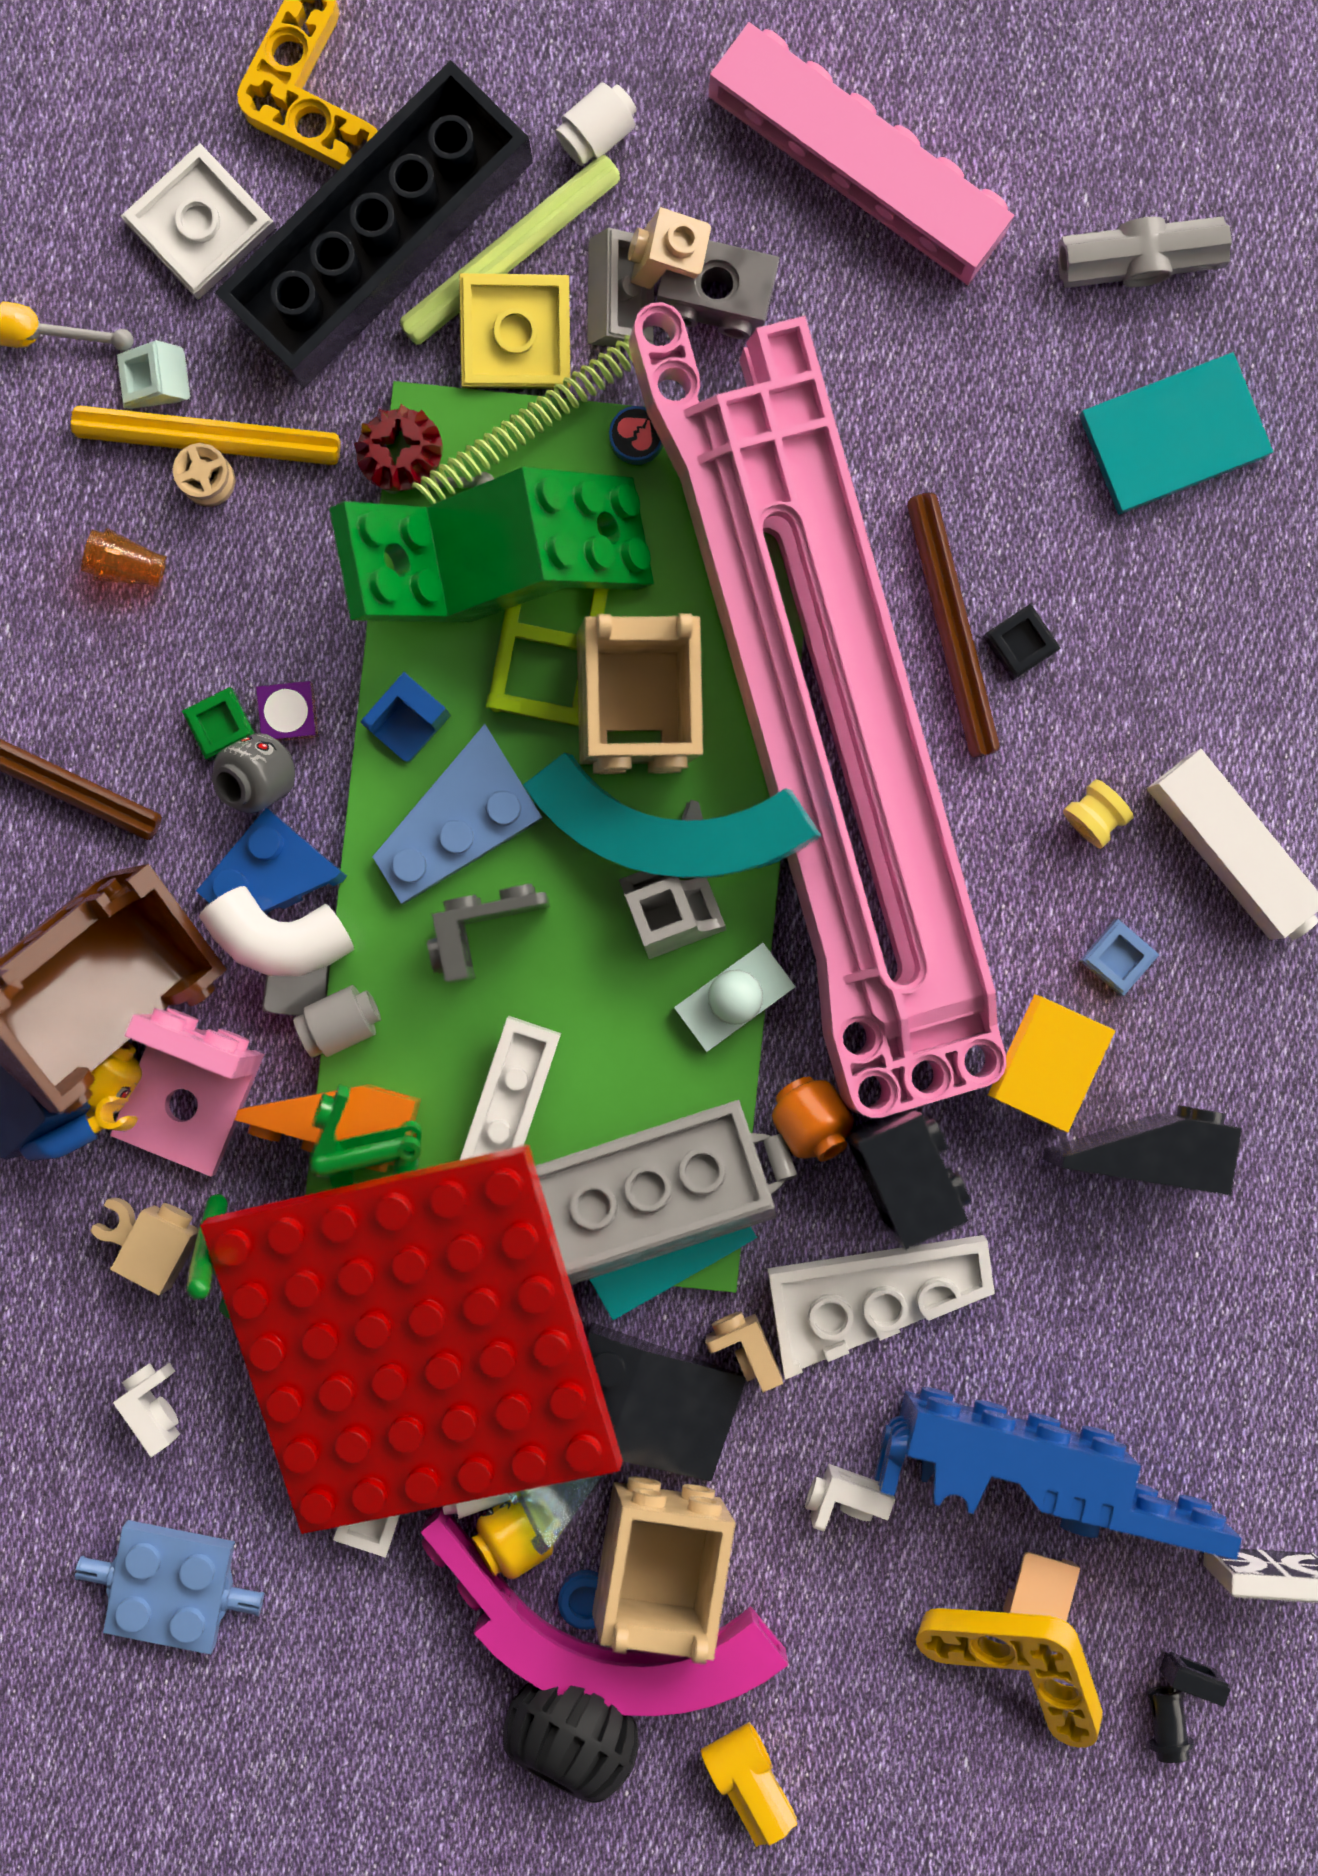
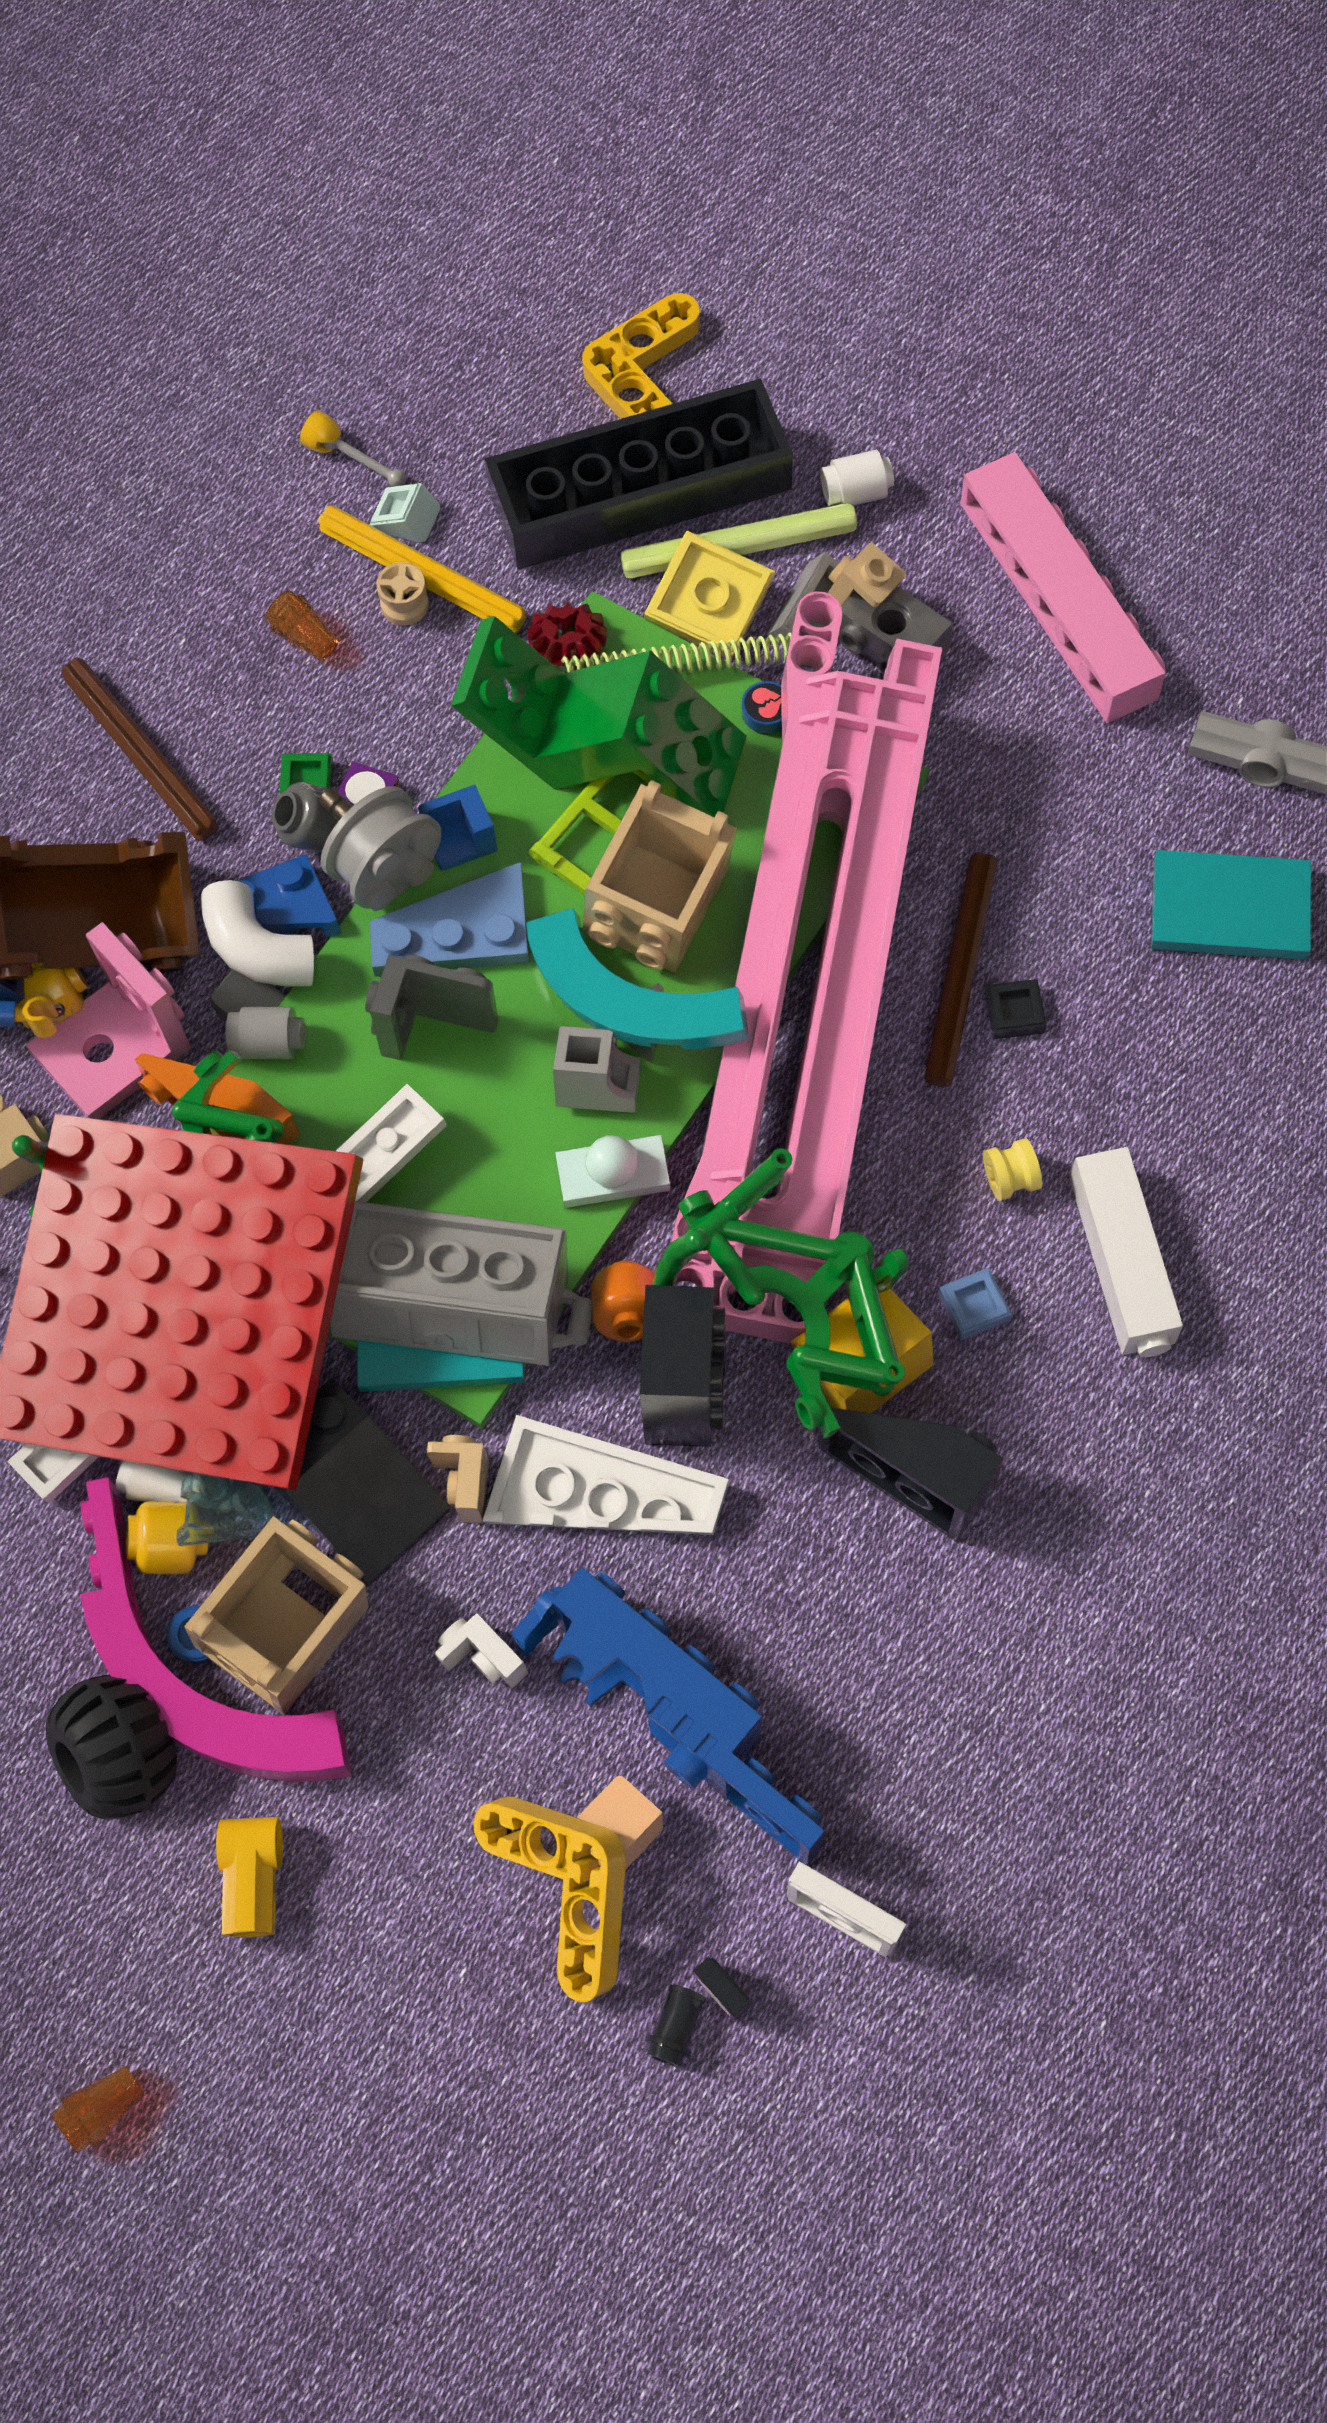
camera: 30 degrees right, 20 degrees down
(198, 221) = (501, 418): white tile -> none
(344, 784) = (379, 845): none -> light grey wheel
(1022, 1017) = (847, 1262): none -> green piece

